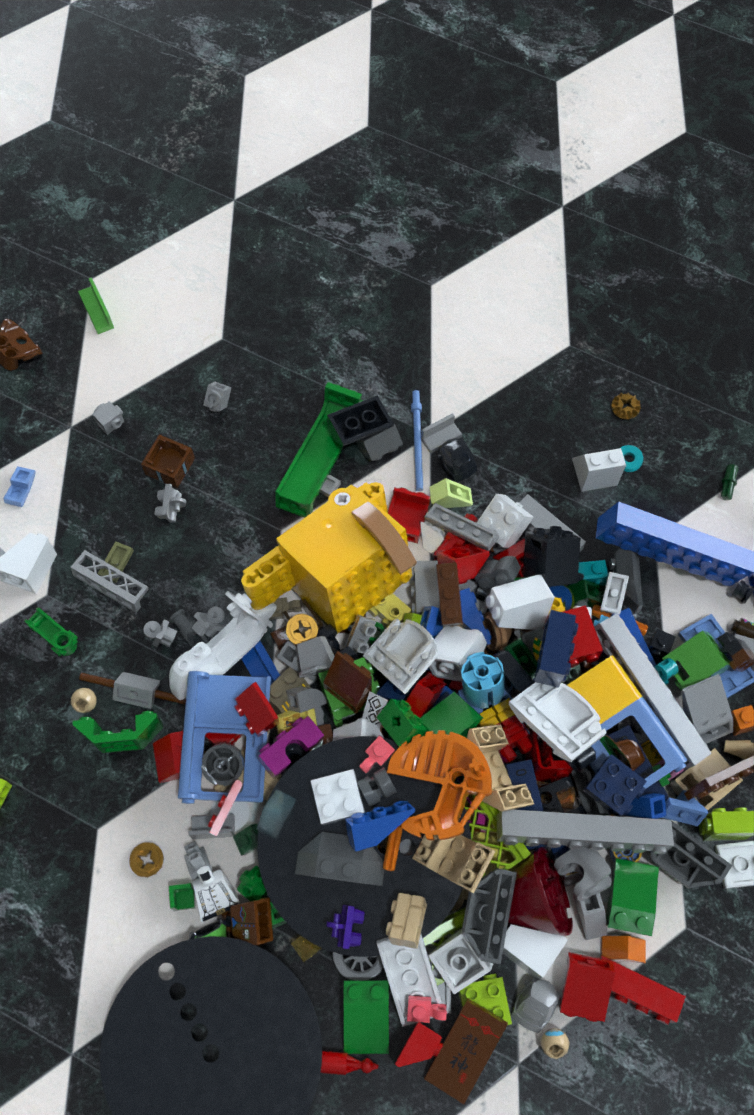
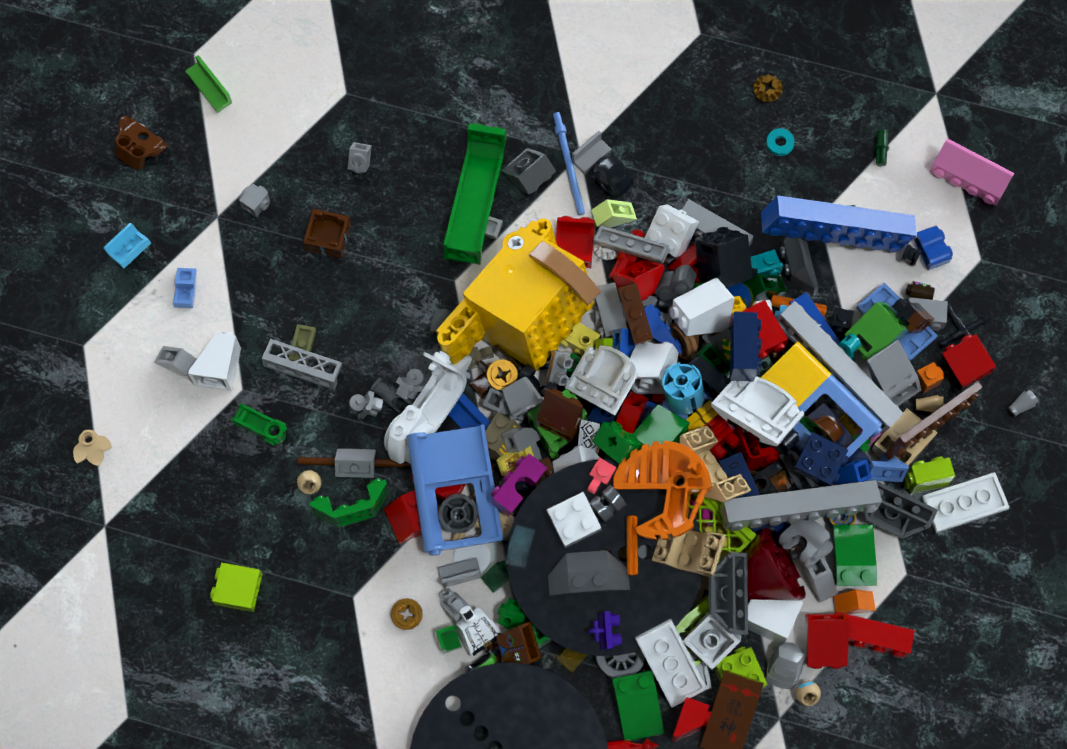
camera: 10 degrees left, 5 degrees up
(171, 503) = (342, 275): light grey hips -> none
(225, 804) = (471, 549): hinge -> none
(256, 710) = (480, 457): red slope -> none
(358, 421) = (509, 158): black slope -> none
(374, 826) = (612, 539): blue slope -> none
(407, 920) = (658, 613): tan brick -> none
(421, 1009) = (687, 687): coral plate -> none
(430, 538) = (603, 261): white sticker -> none
(599, 469) = (753, 159): white slope -> none
(614, 593) = (789, 281): white slope -> none

